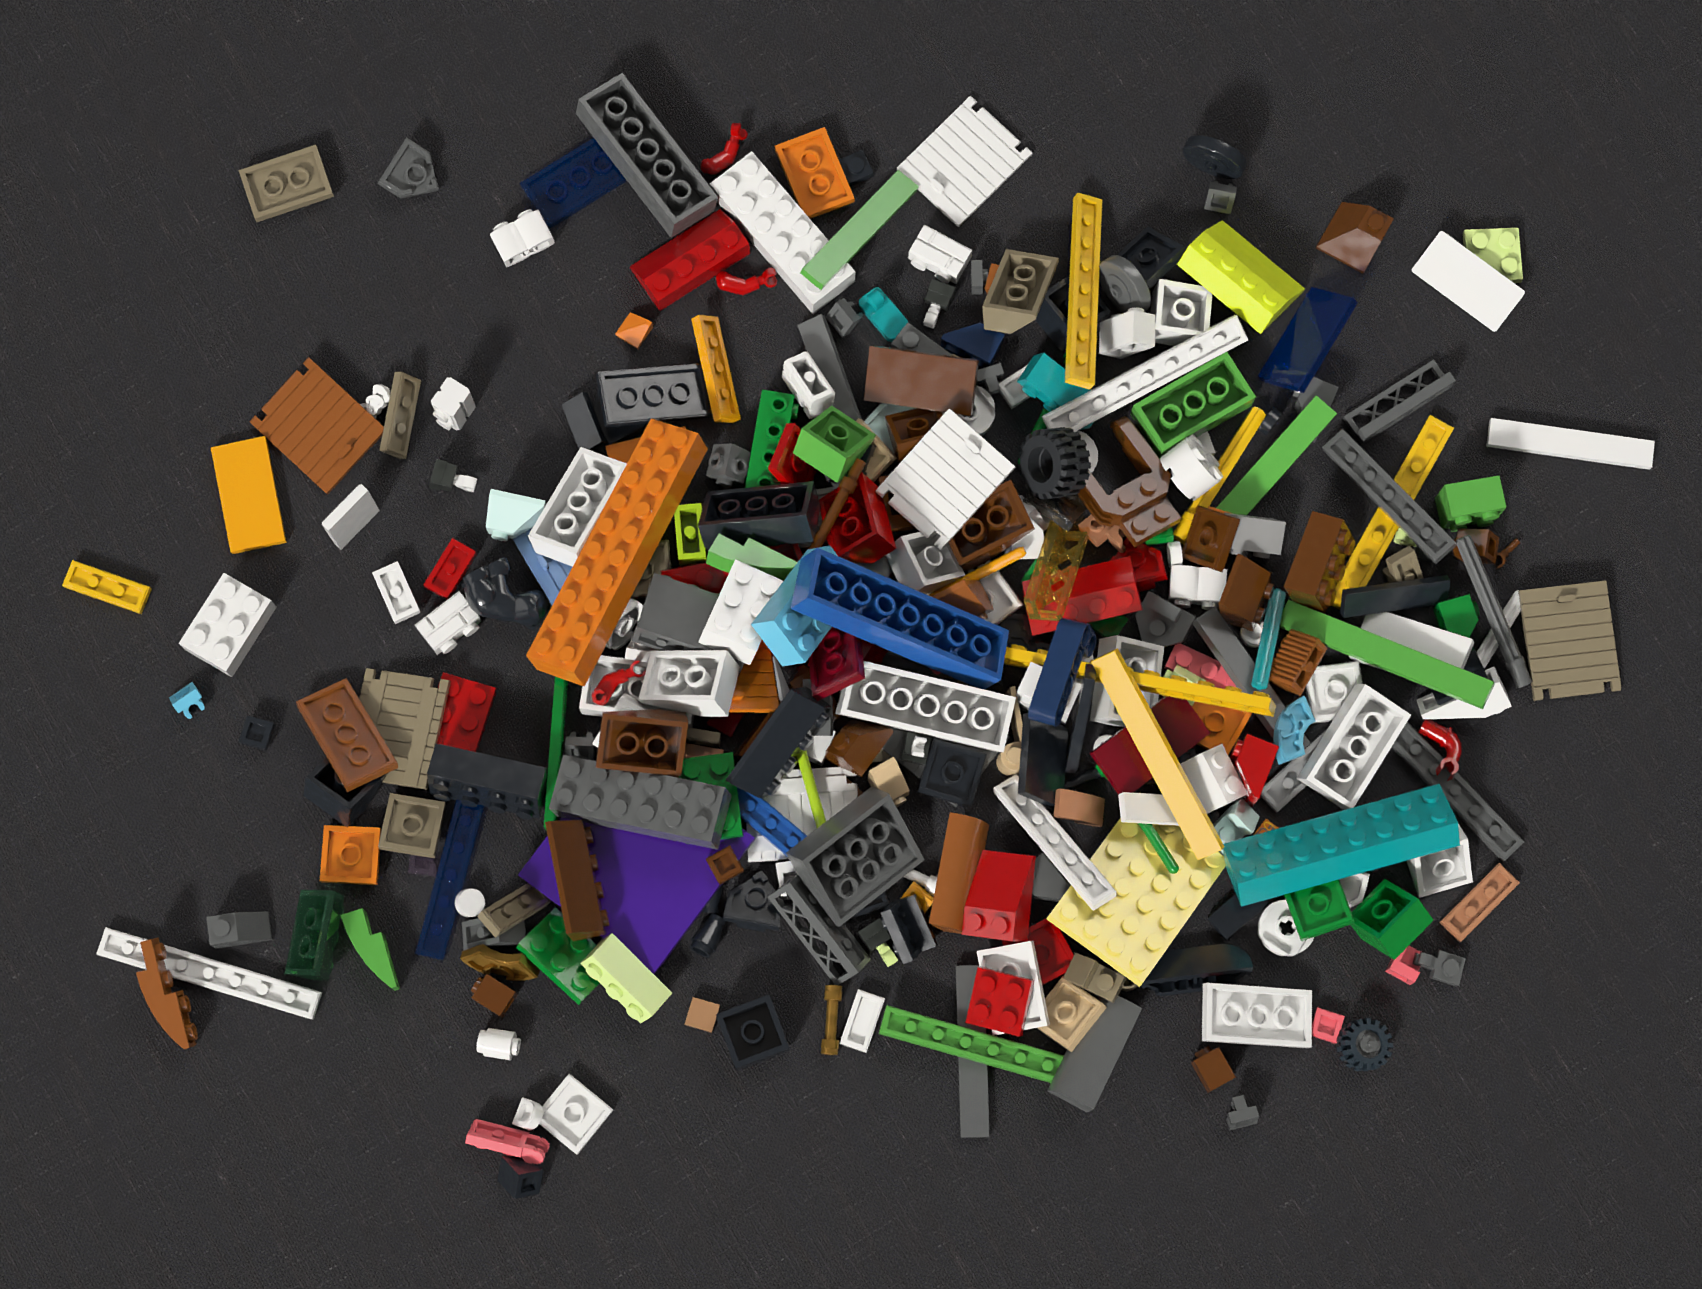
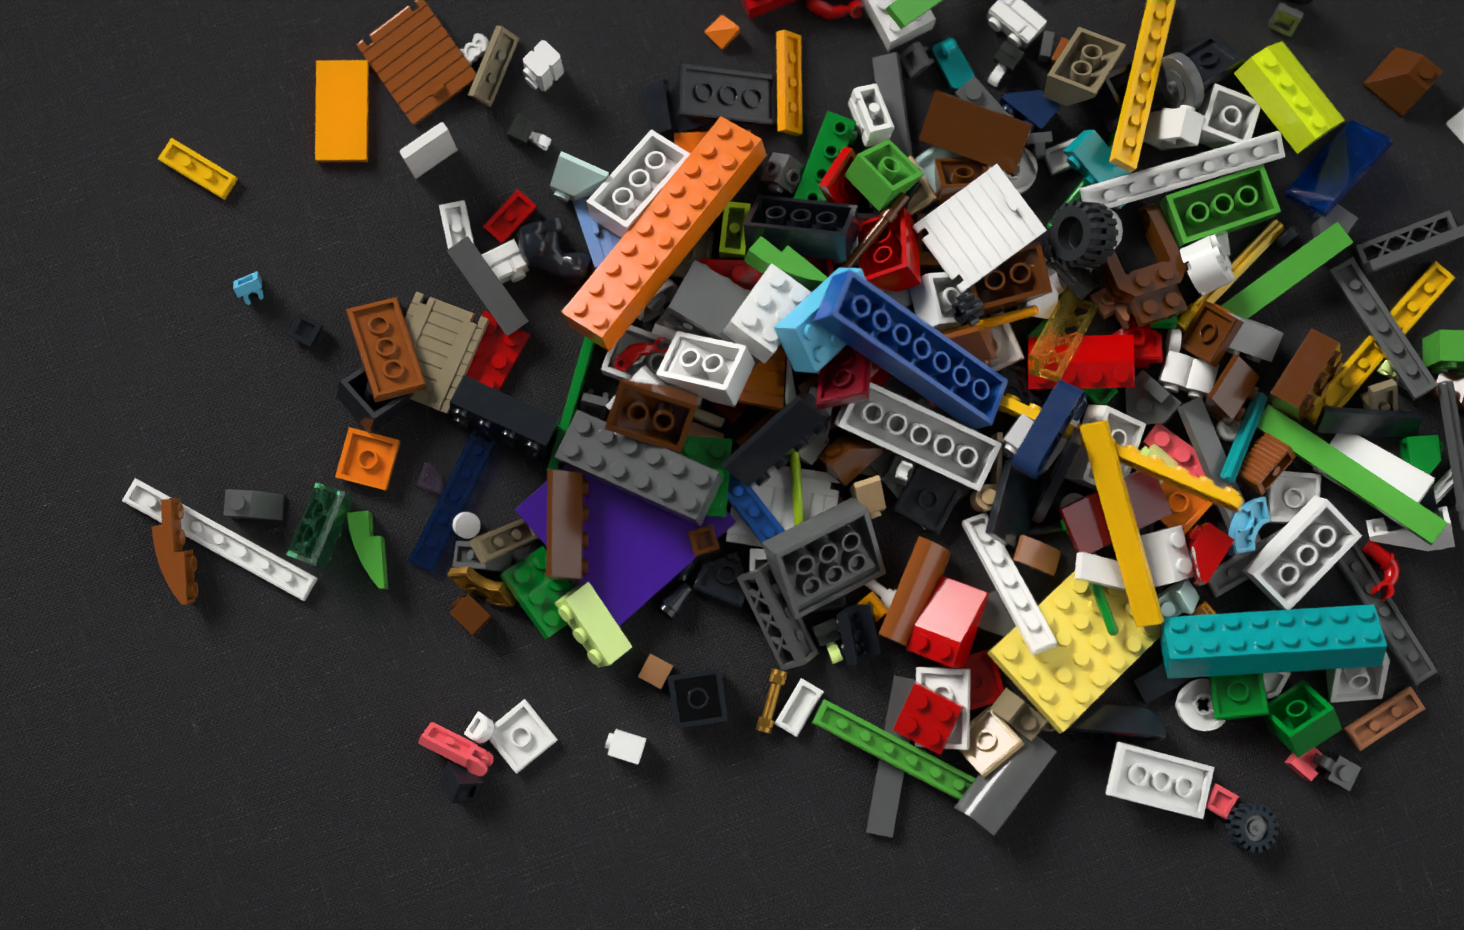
camera: 10 degrees right, 5 degrees up
(227, 625) = (299, 226): white brick -> none
(412, 825) = (428, 444): dark tan plate -> none
(441, 645) = (487, 285): none -> dark grey tile
(498, 1043) = (466, 658): white brick -> none
(687, 1099) = (625, 746): none -> white brick
(950, 565) = (967, 309): none -> black gear
(1212, 1068) = (1108, 819): reddish brown brick -> none
(1241, 1115) = (1126, 866): dark grey tile -> none

